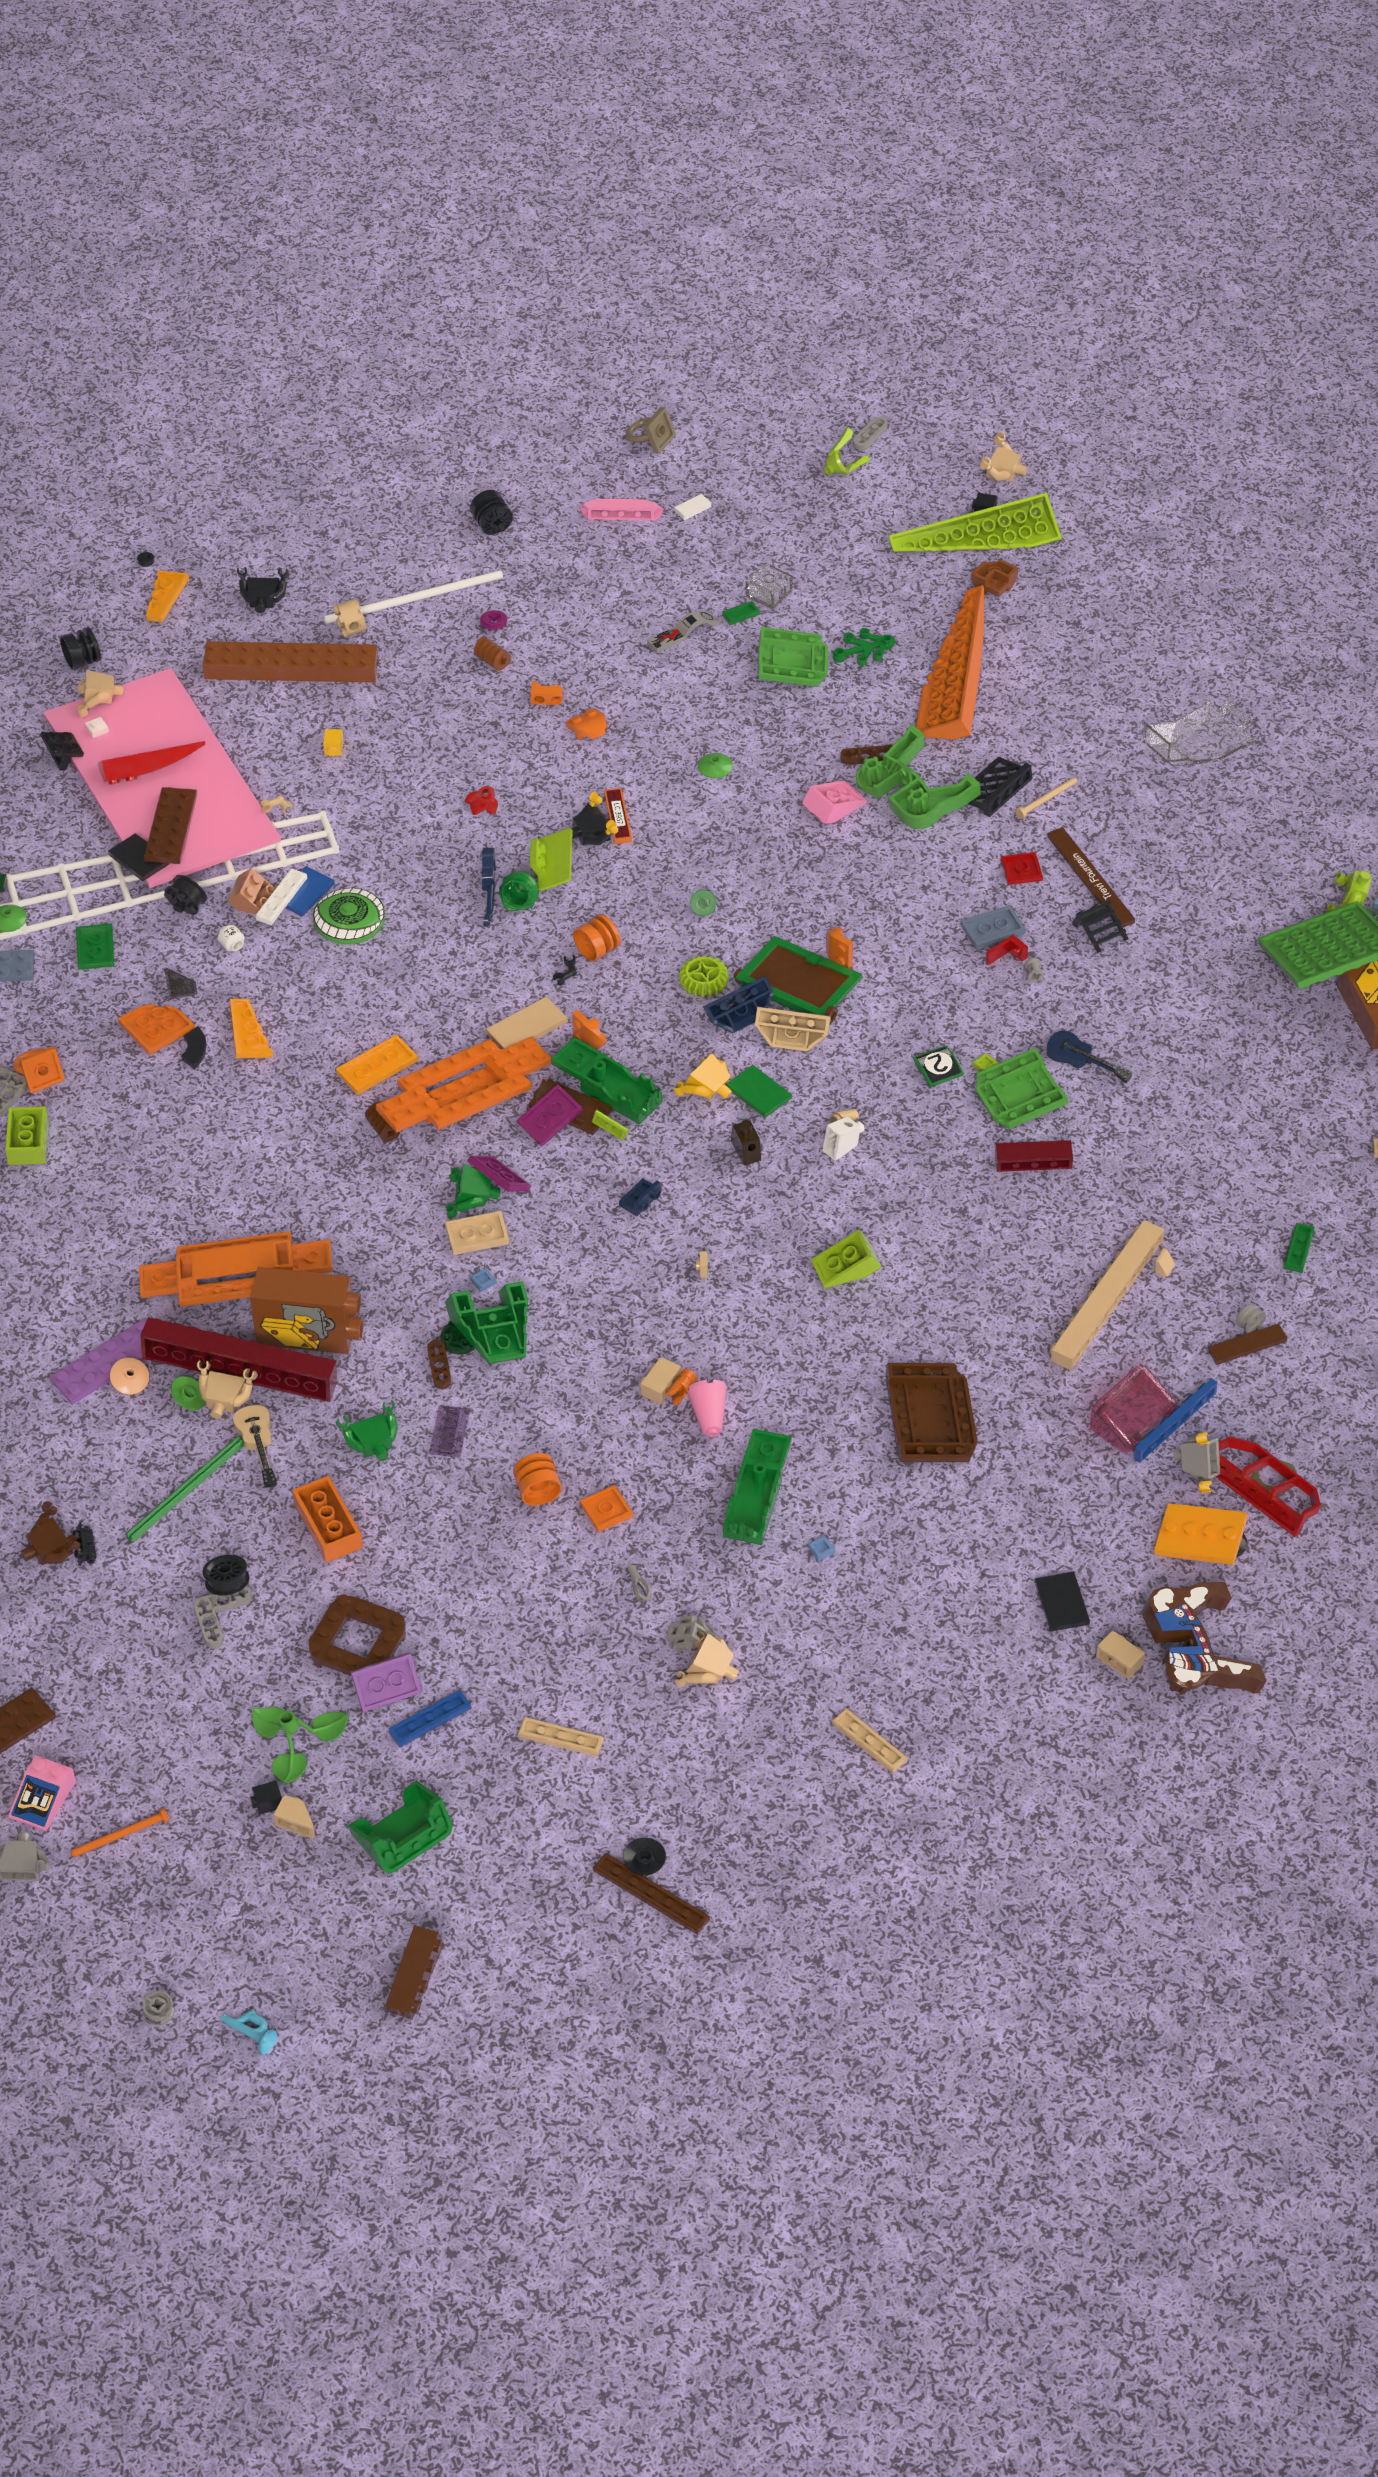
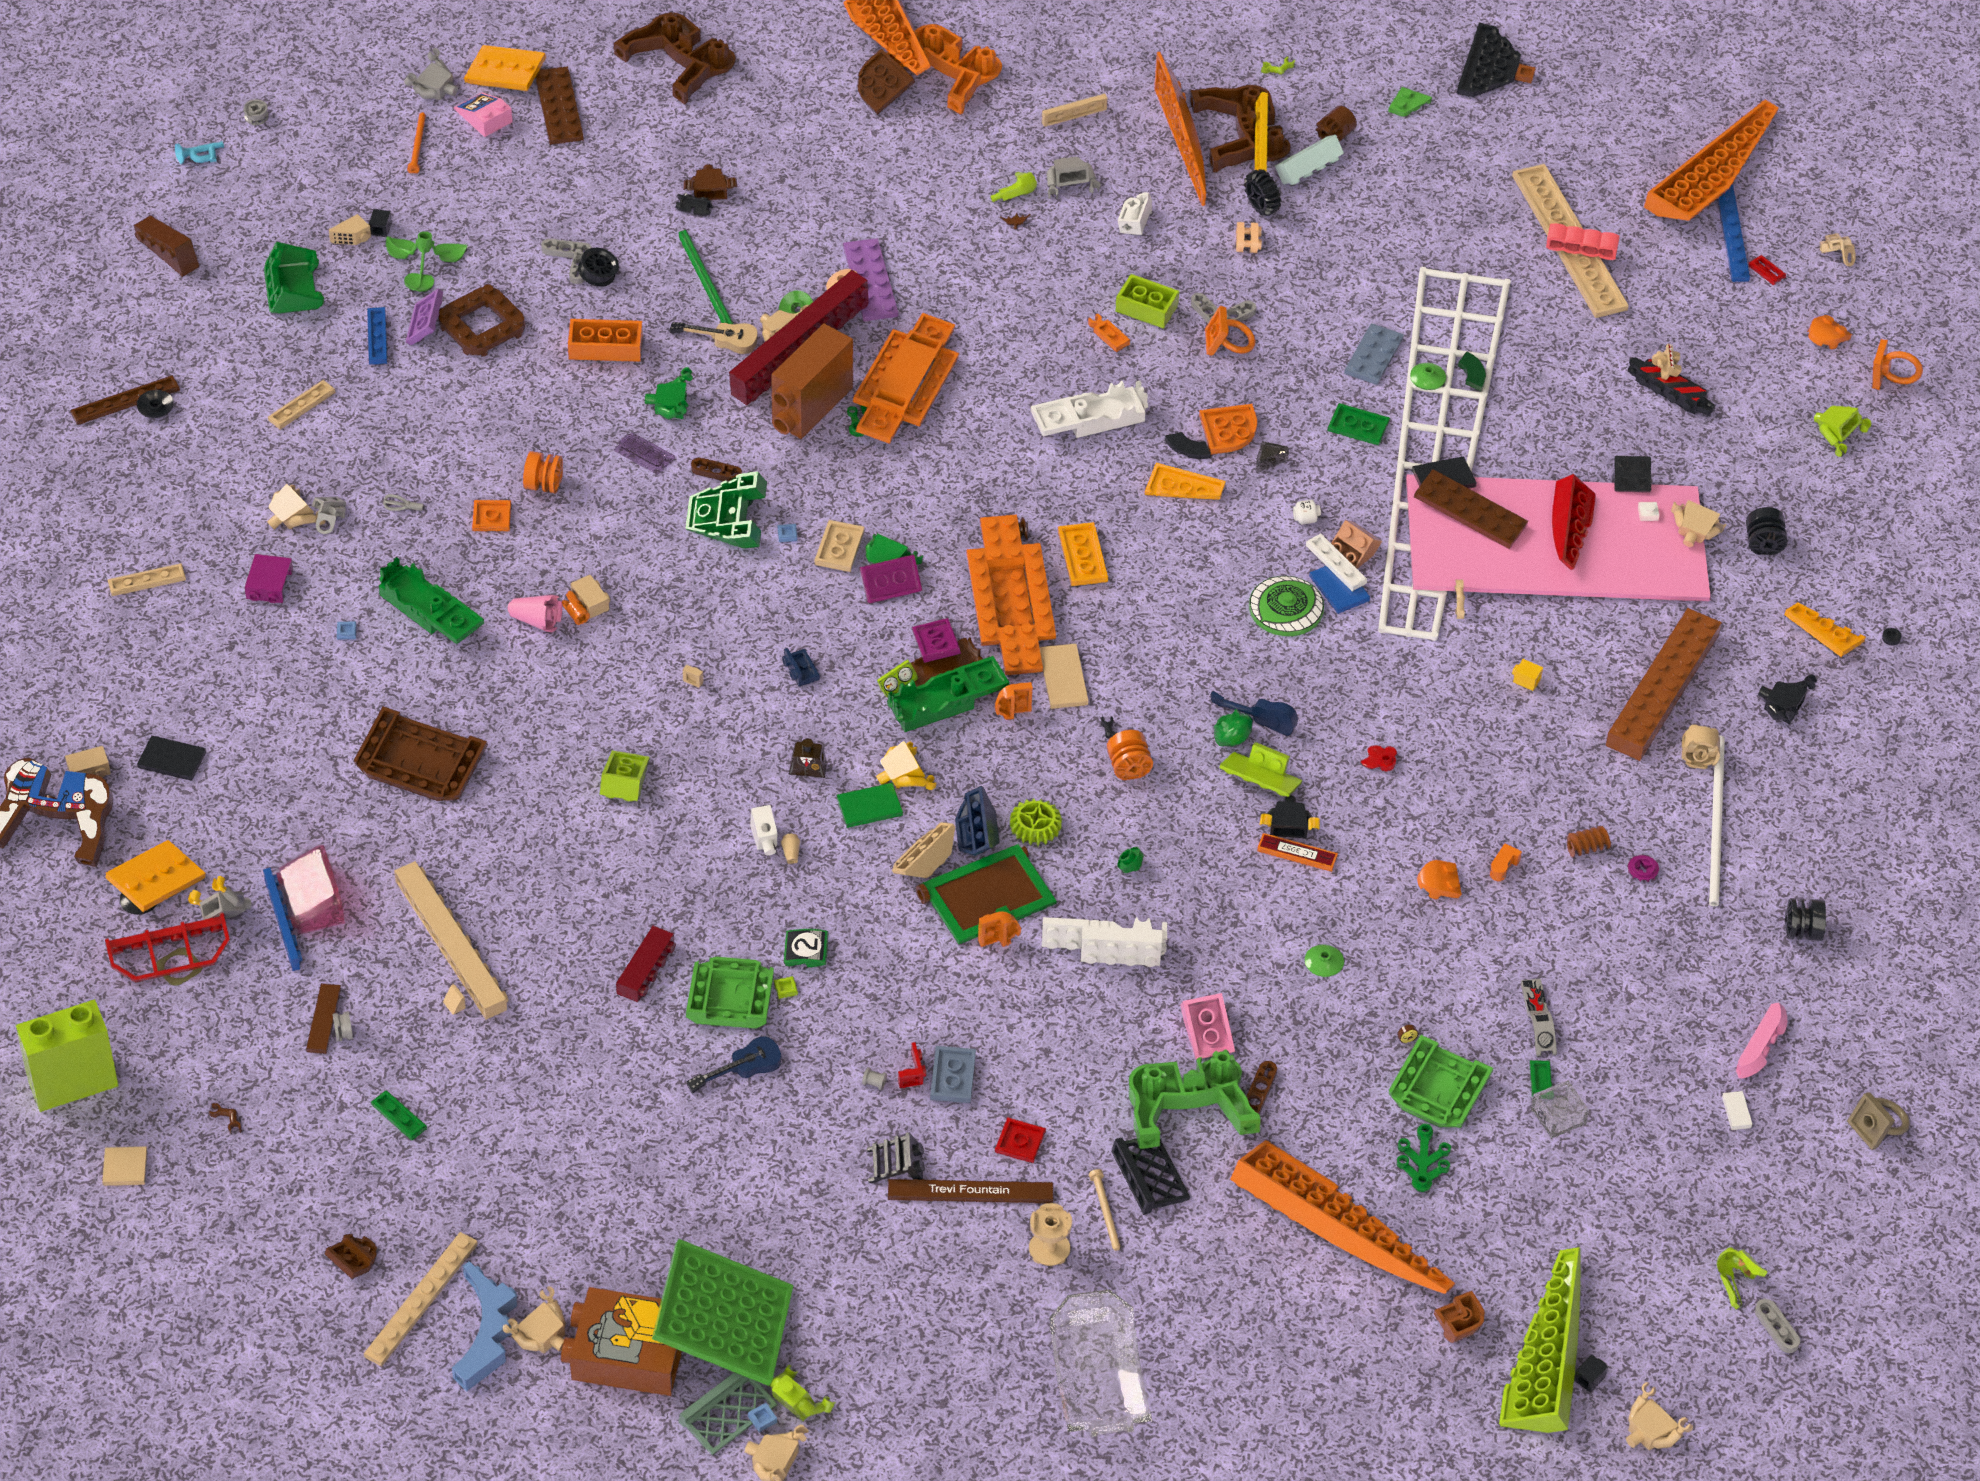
camera: 115 degrees right, 0 degrees up
(81, 1153) = (1109, 333): none -> orange plate
(185, 895) = (1373, 491): black wheel -> none
(199, 1116) = (1092, 412): none -> white piece
(756, 690) = (1407, 1033): none -> tile
(802, 871) = (1107, 941): none -> white piece
(805, 1633) = (268, 578): none -> magenta panel
(1107, 791) = (1050, 1229): none -> tan piece

